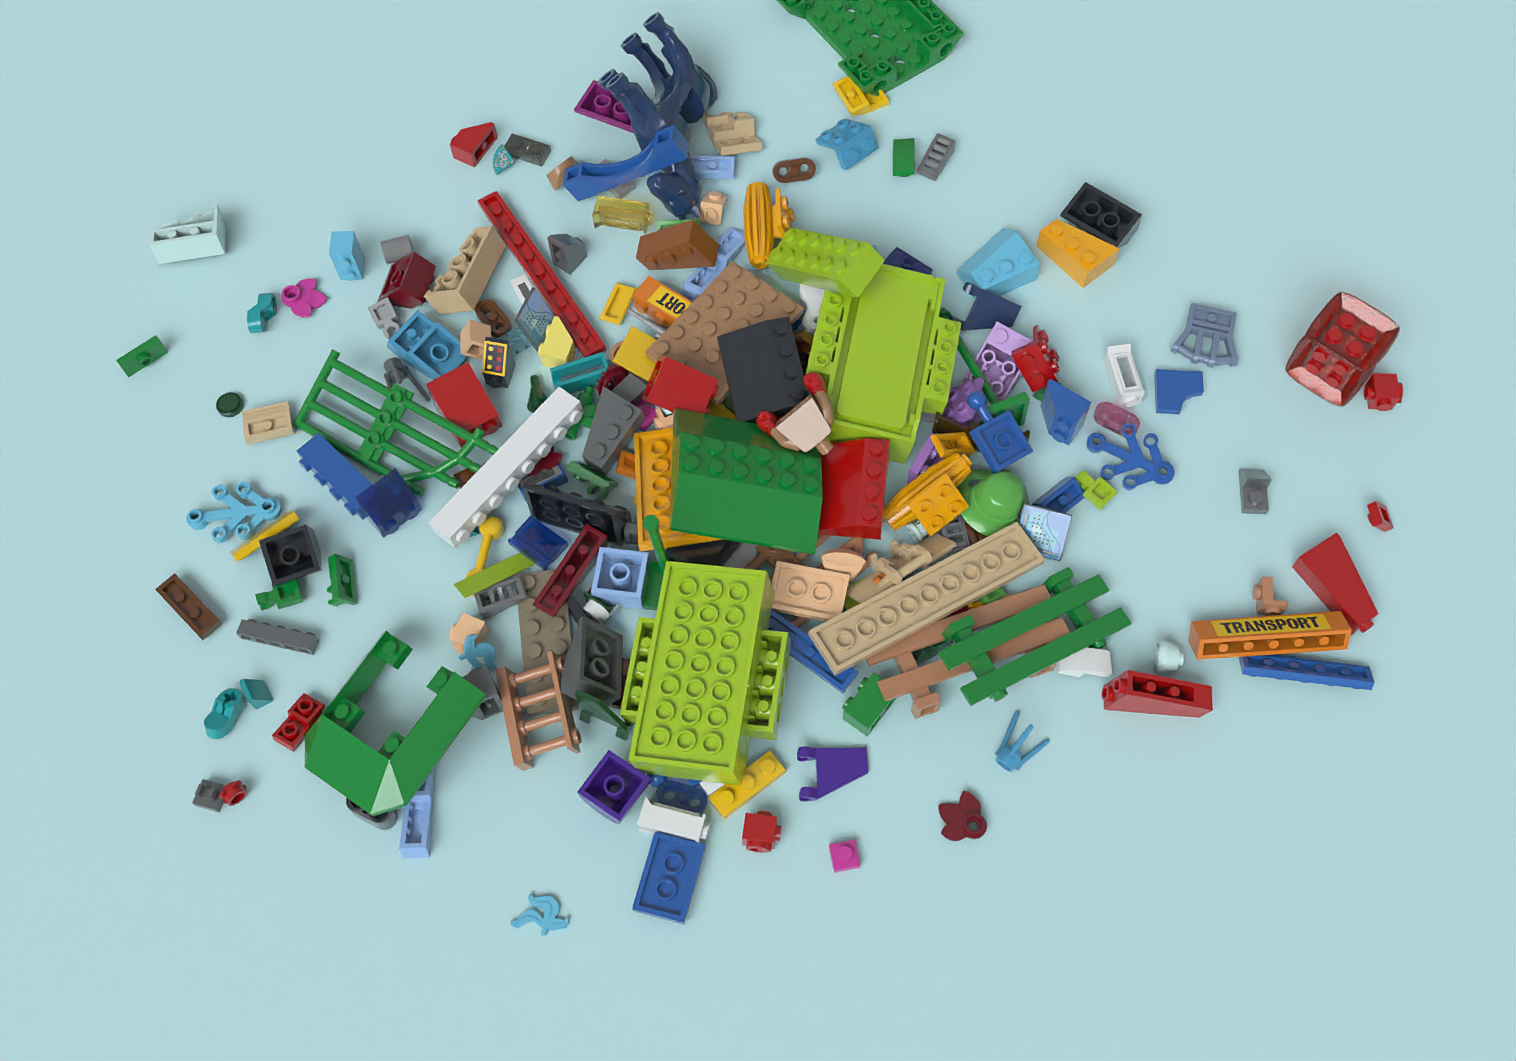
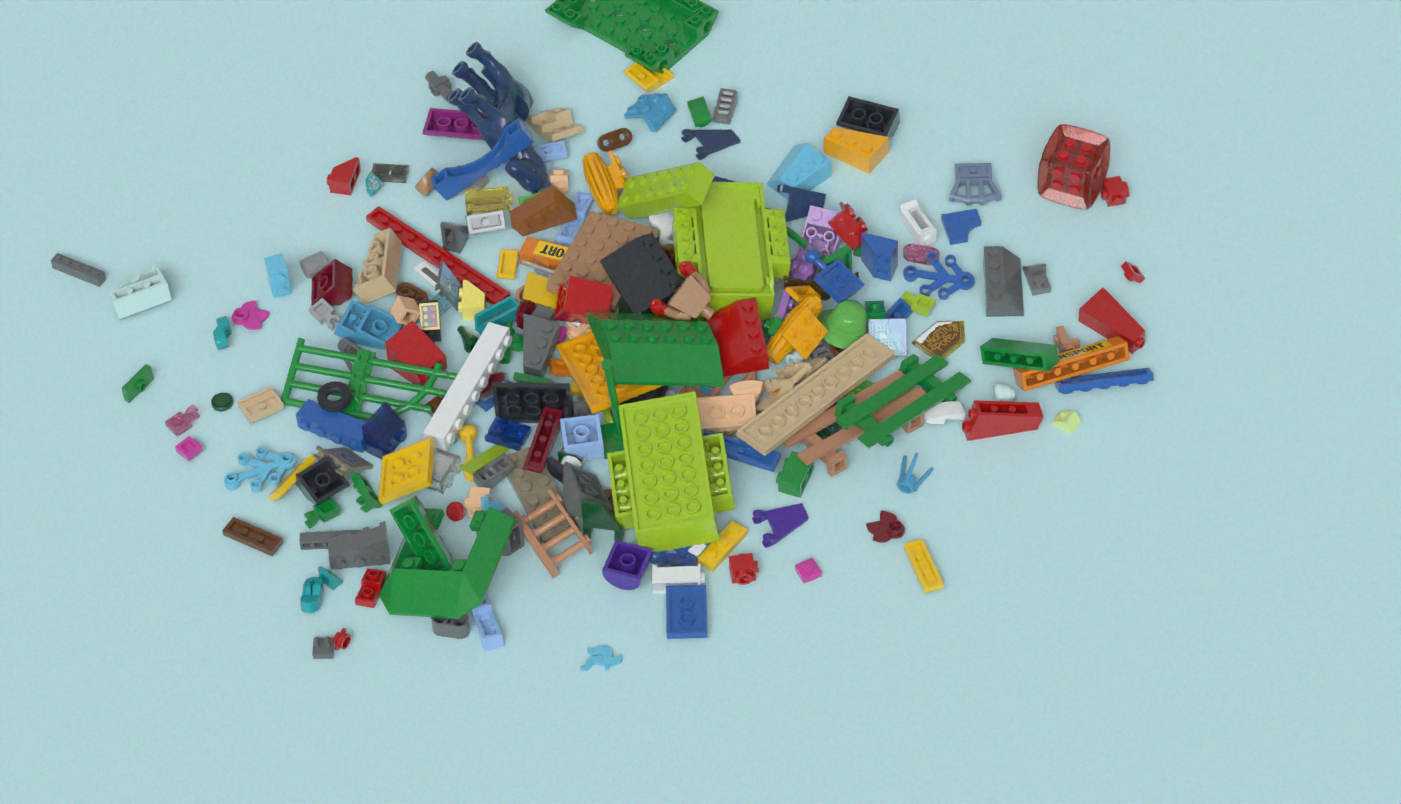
camera: 15 degrees left, 15 degrees down
(140, 188) = (78, 269): none -> dark grey piece
(164, 460) = (188, 448): none -> dark pink plate
(172, 420) = (182, 422): none -> clear pink plate
(302, 665) = (360, 549): none -> dark grey wedge
(331, 527) = (347, 459): none -> dark tan flag
(353, 451) = (330, 388): none -> black tyre
(371, 680) = (421, 535): none -> green slope
(395, 568) = (406, 471): none -> yellow plate
(437, 639) = (455, 511): none -> red plate
(439, 575) = (444, 470): none -> clear brick
(607, 243) = (485, 222): none -> brick
(617, 54) = (439, 85): none -> dark grey axle
(899, 480) = (770, 326): none -> green plate
(907, 197) = (711, 140): none -> dark blue flag
(995, 896) = (923, 566): none -> yellow plate
(1037, 486) = (875, 309): none -> green plate
(1110, 547) = (941, 338): none -> tile
(1205, 609) = (1019, 354): none -> green brick
(1208, 488) = (1002, 282): none -> dark grey slope
(1241, 717) = (1067, 421): none -> yellowish green slope

